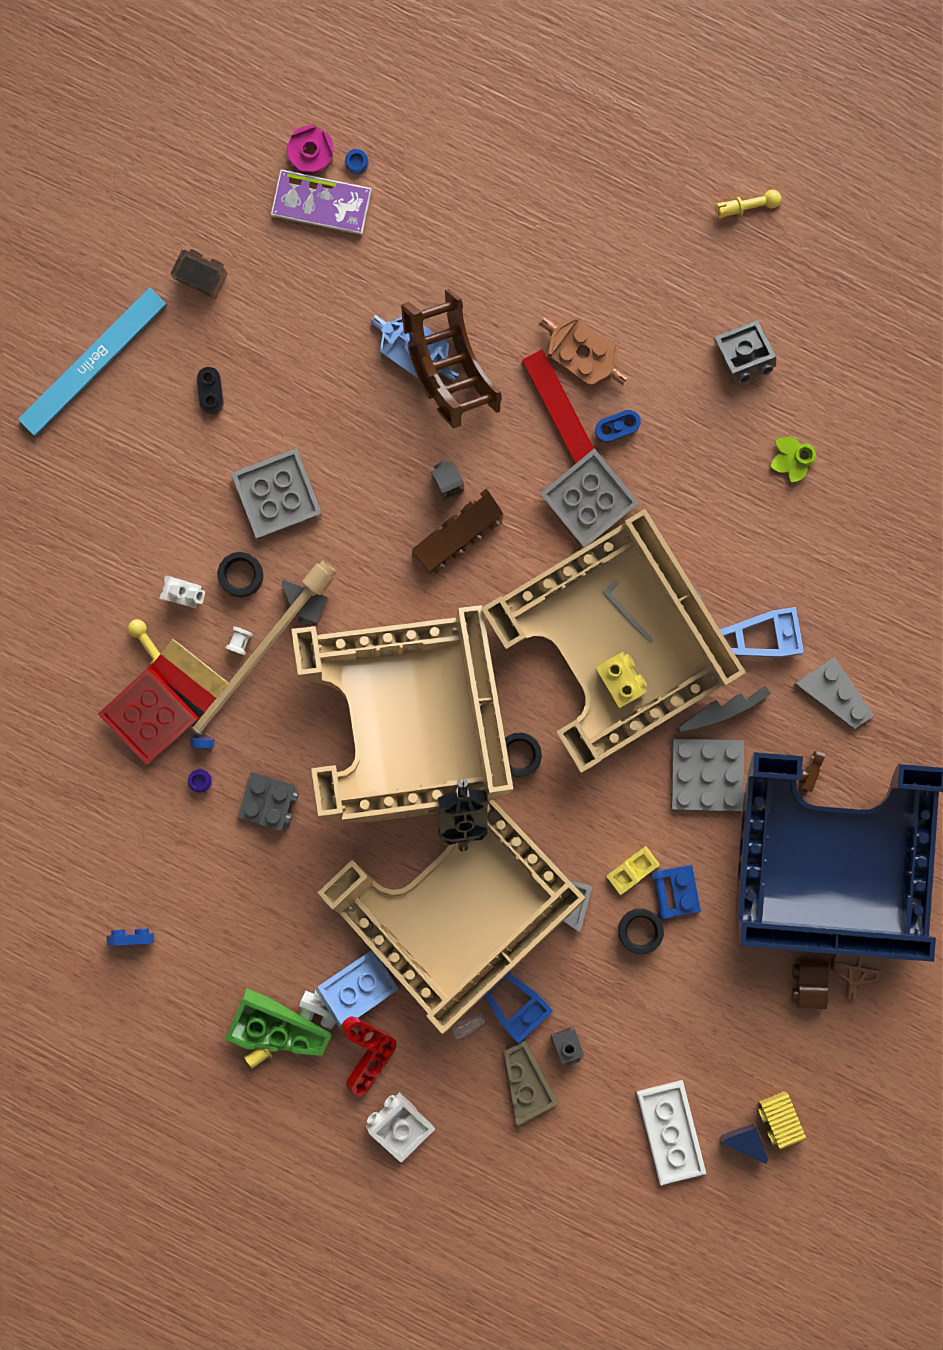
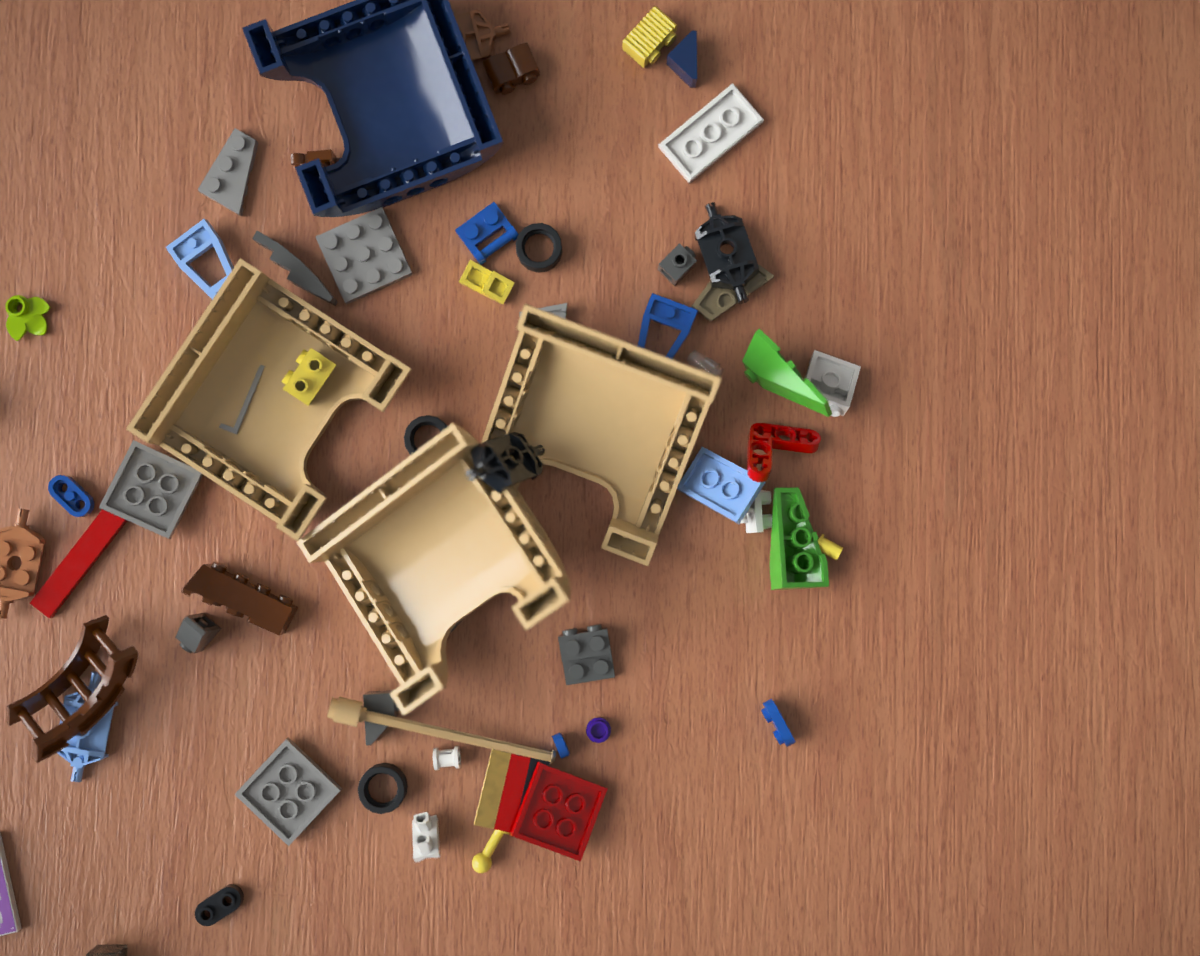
camera: 115 degrees left, 0 degrees up
(434, 1081) = (773, 373): none -> bright green wedge
(542, 1083) = (731, 269): none -> black plate

